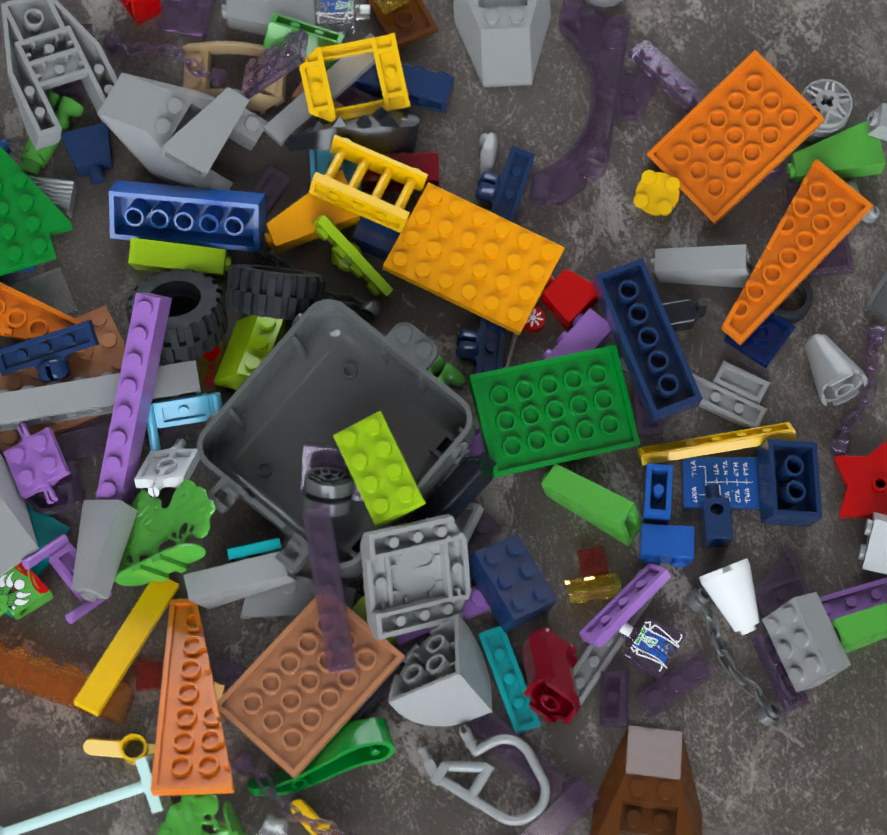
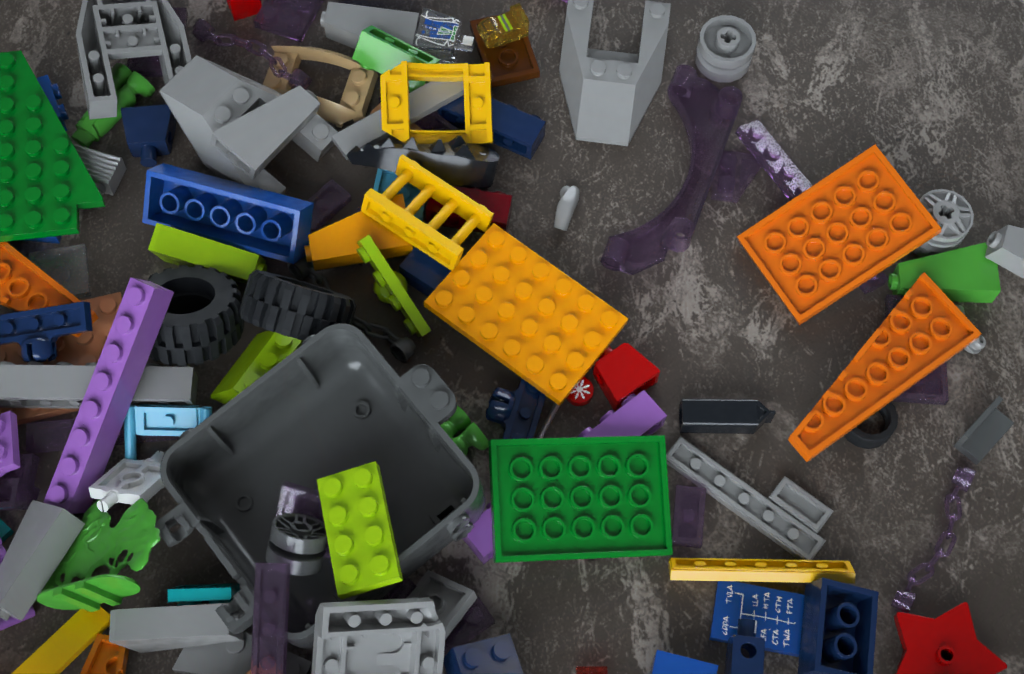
camera: 10 degrees right, 5 degrees down
(208, 368) = (211, 376): clear yellow tile -> none
(275, 63) = (359, 73): clear purple plate -> none
(461, 487) = (453, 568): black piece -> none
(505, 190) = (577, 247): dark blue plate -> none
(593, 503) = (605, 614): bright green slope -> none
(646, 341) = (701, 438): dark blue brick -> none
(657, 193) = (741, 280): yellow piece -> none
(657, 494) = (682, 617): blue brick -> none
(704, 265) = (780, 366): light grey slope -> none
(765, 340) = (836, 462): clear blue plate -> none
(833, 371) = (908, 511): light grey cone -> none

